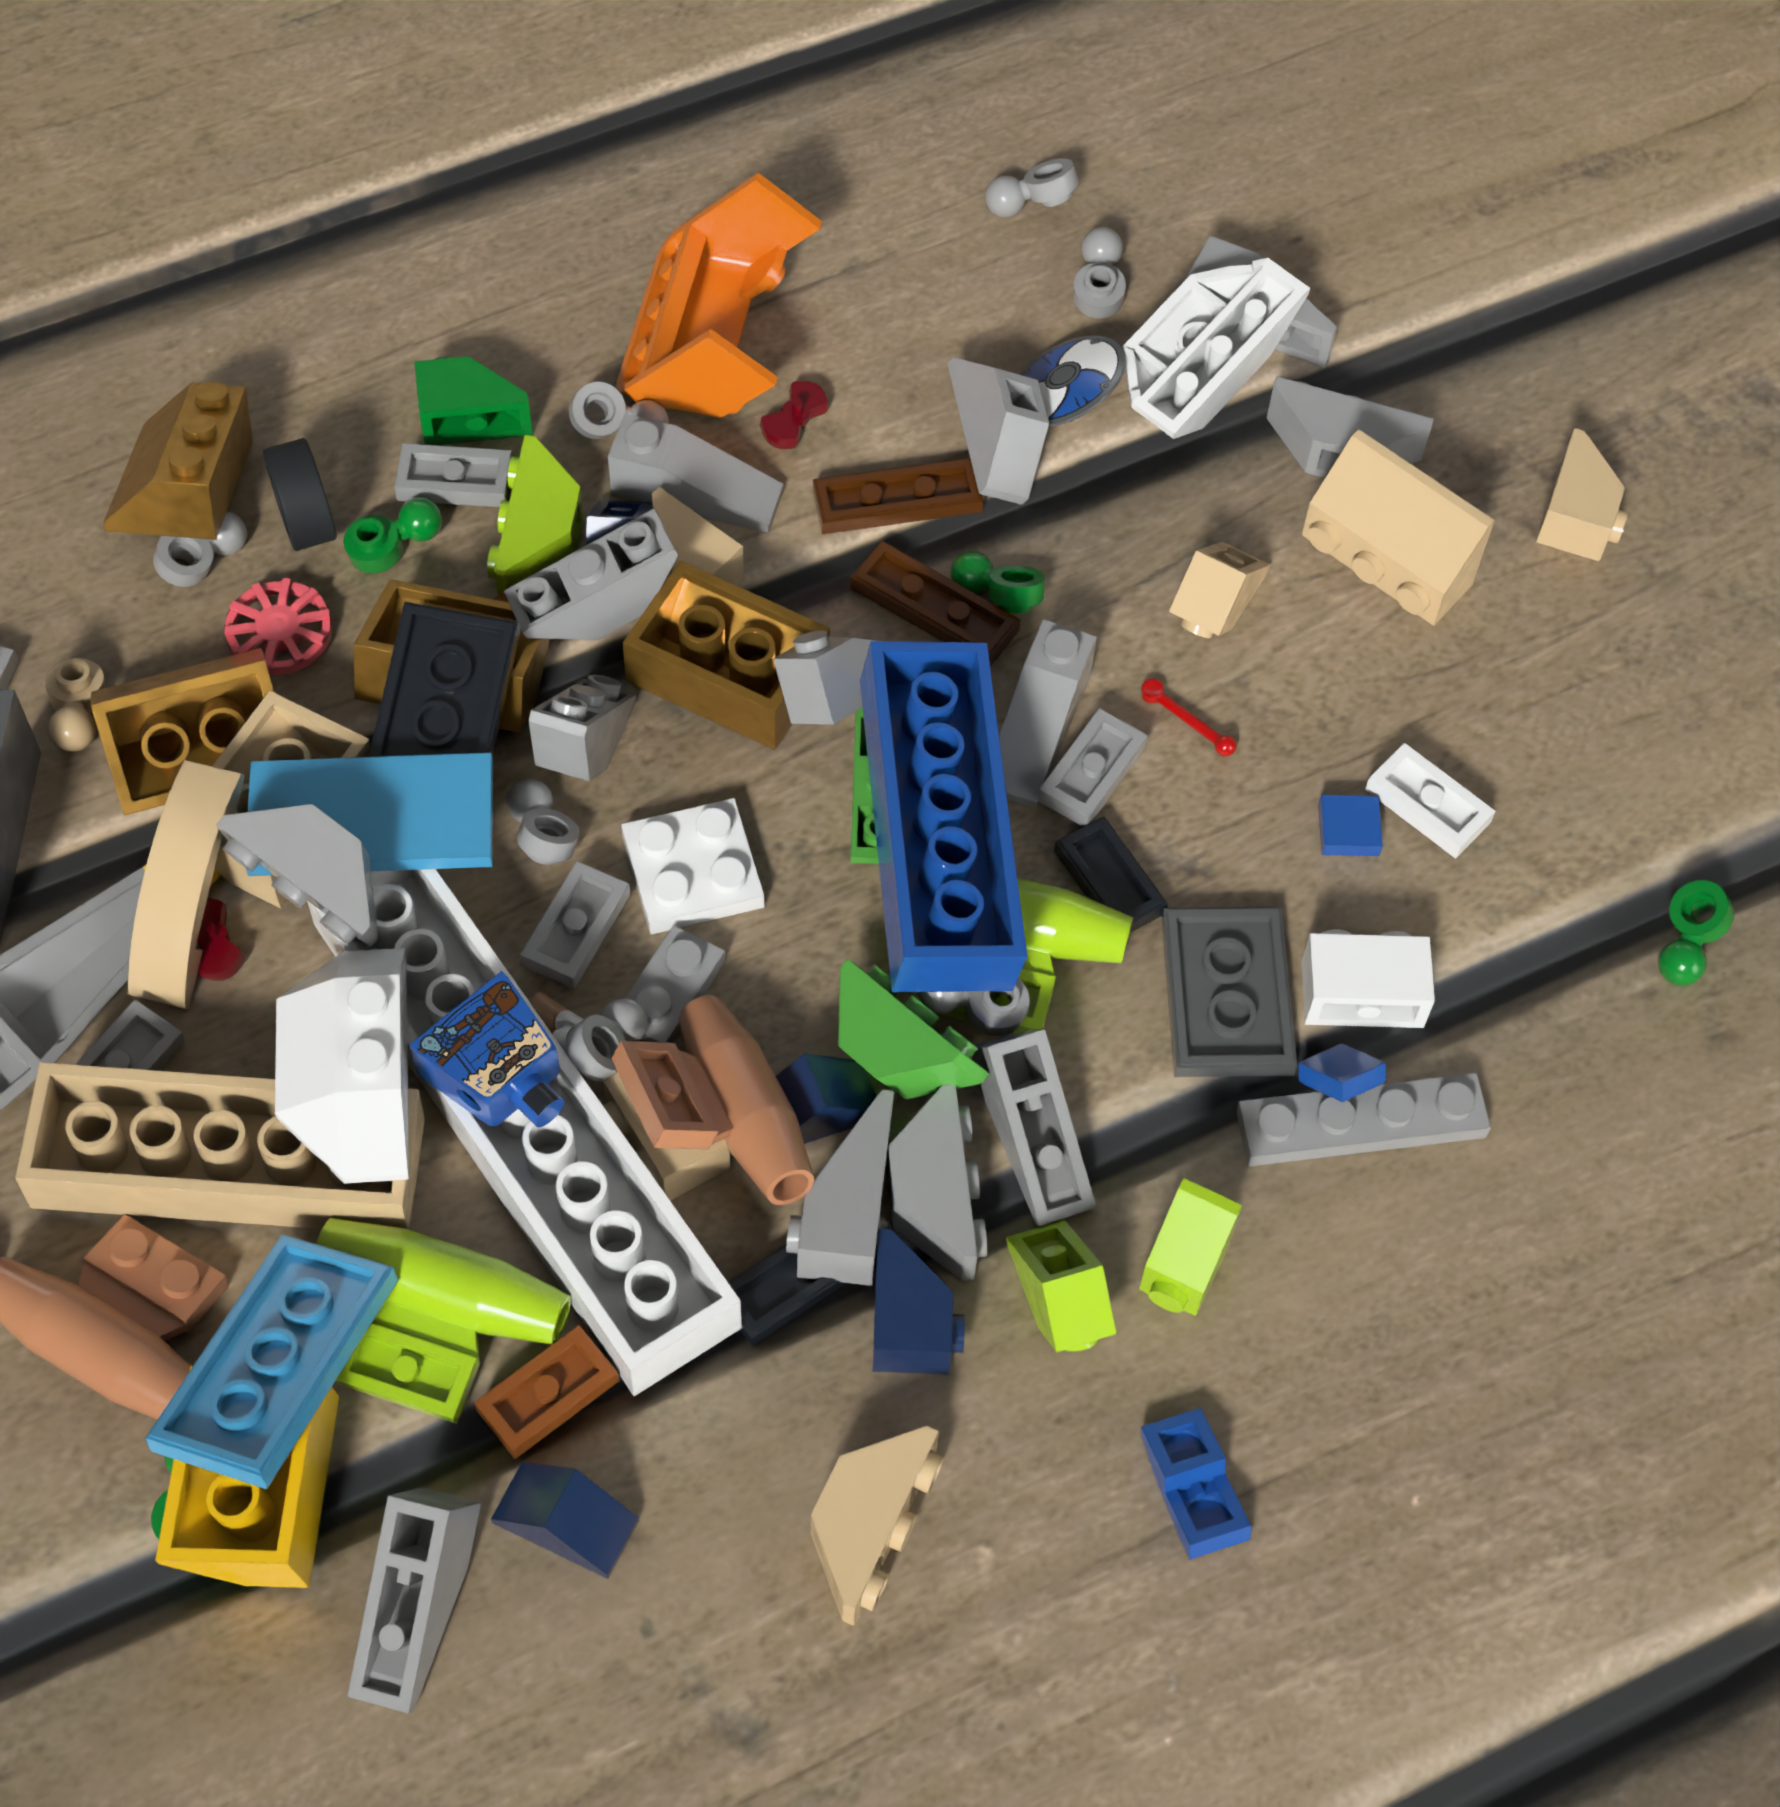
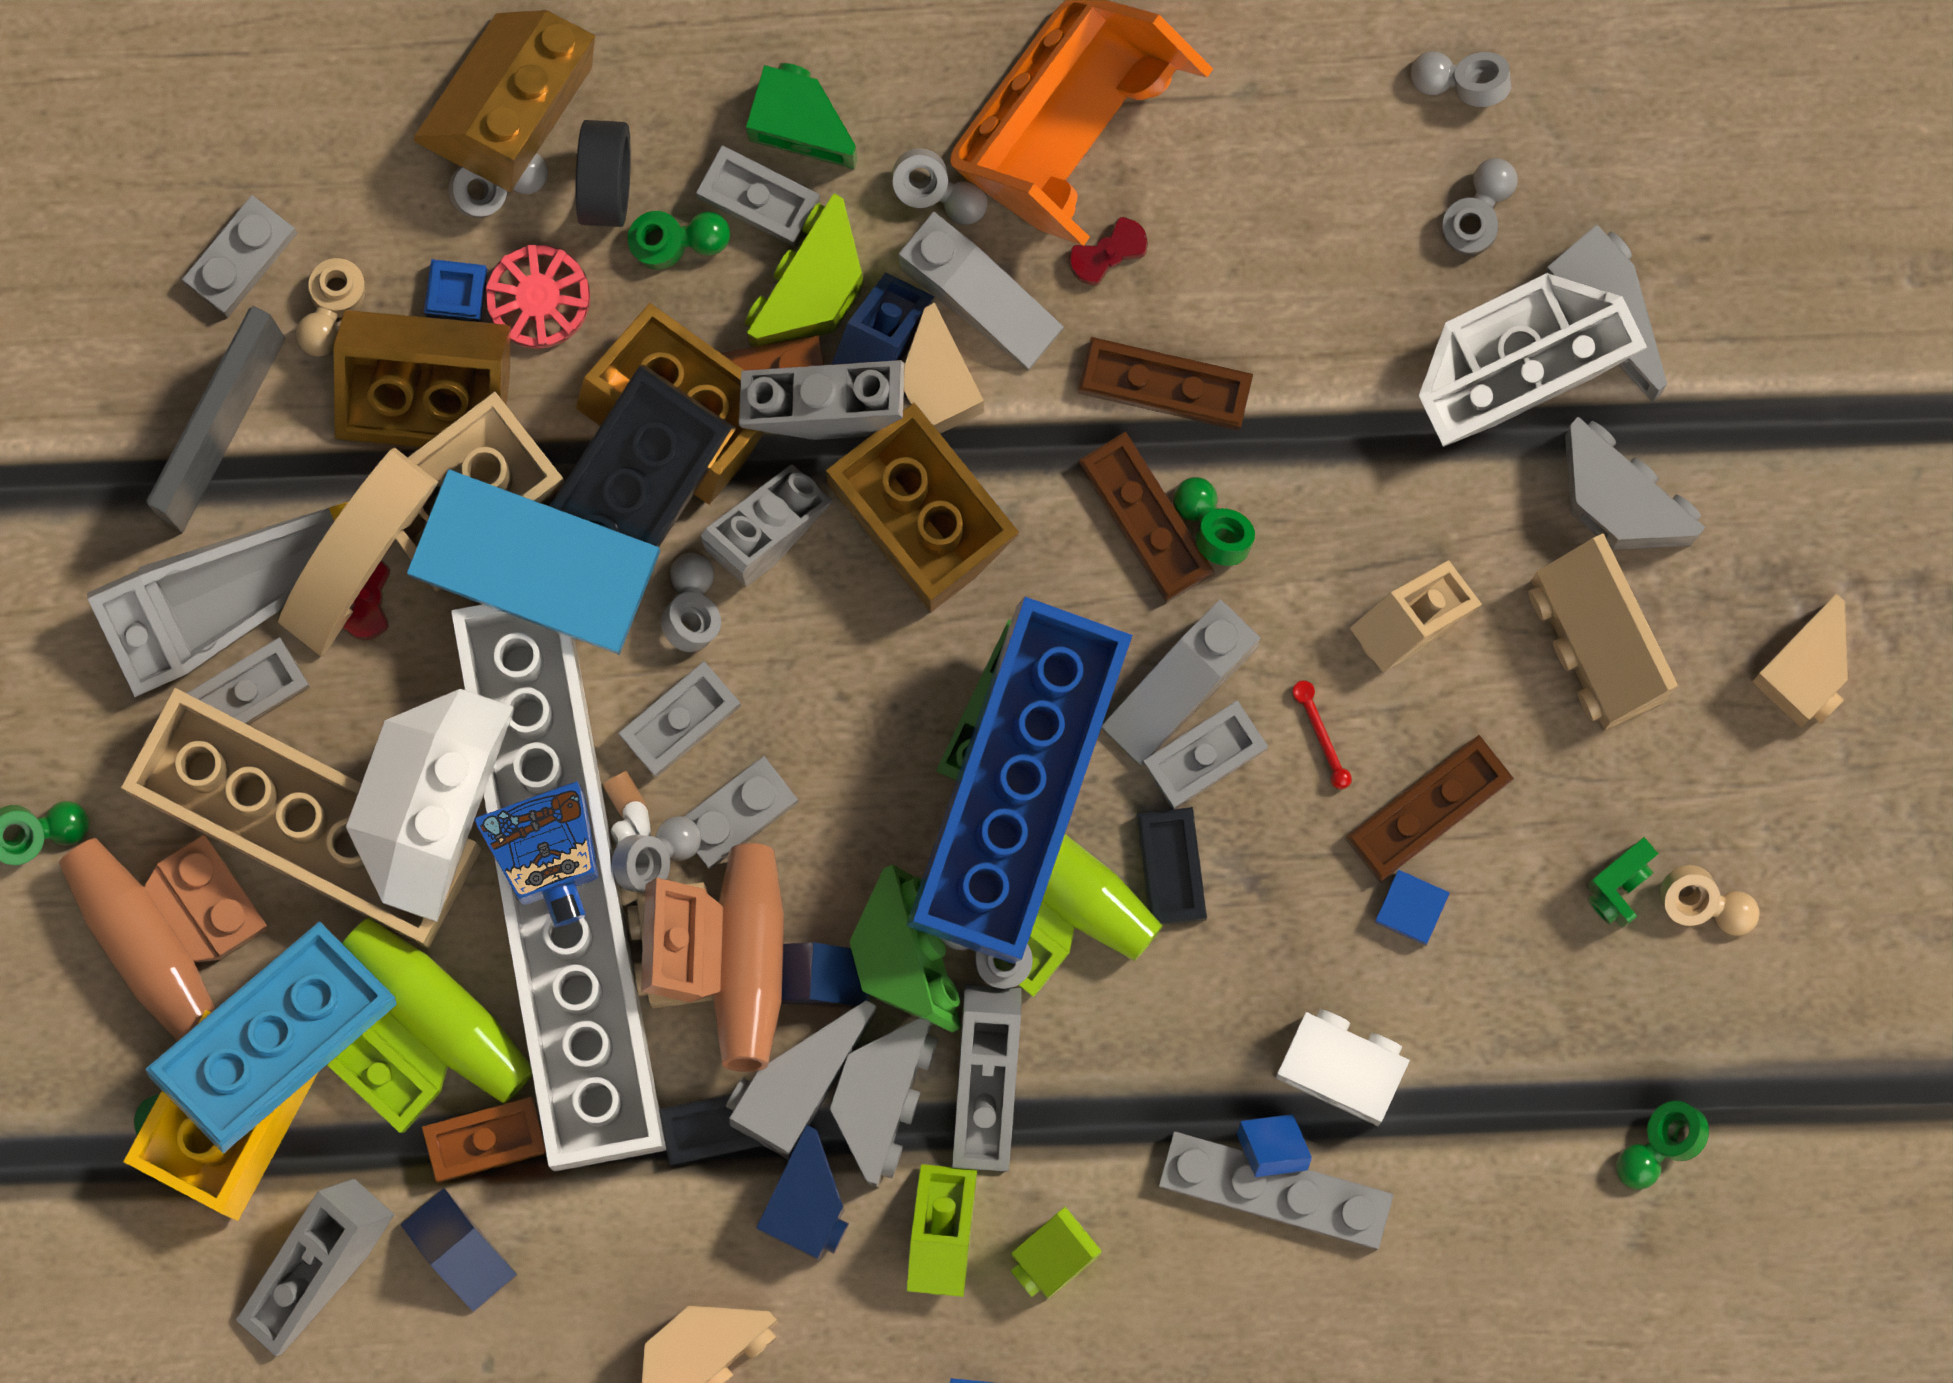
camera: 30 degrees right, 20 degrees up
(193, 643) = (455, 290): none -> blue tile
(312, 862) = (459, 605): light grey slope -> none
(692, 866) = (807, 699): white plate -> none
(822, 677) = (995, 576): light grey slope -> none
(1002, 427) = (1292, 351): light grey slope -> none
(1077, 376) = (1379, 330): shield -> none
(1228, 992) = (1220, 1021): dark grey tile -> none
(1318, 741) = (1429, 808): none -> reddish brown tile
(1430, 800) = (1494, 916): white plate -> none
(1521, 738) = (1627, 872): none -> green bracket
(1634, 719) = (1733, 912): none -> tan plate

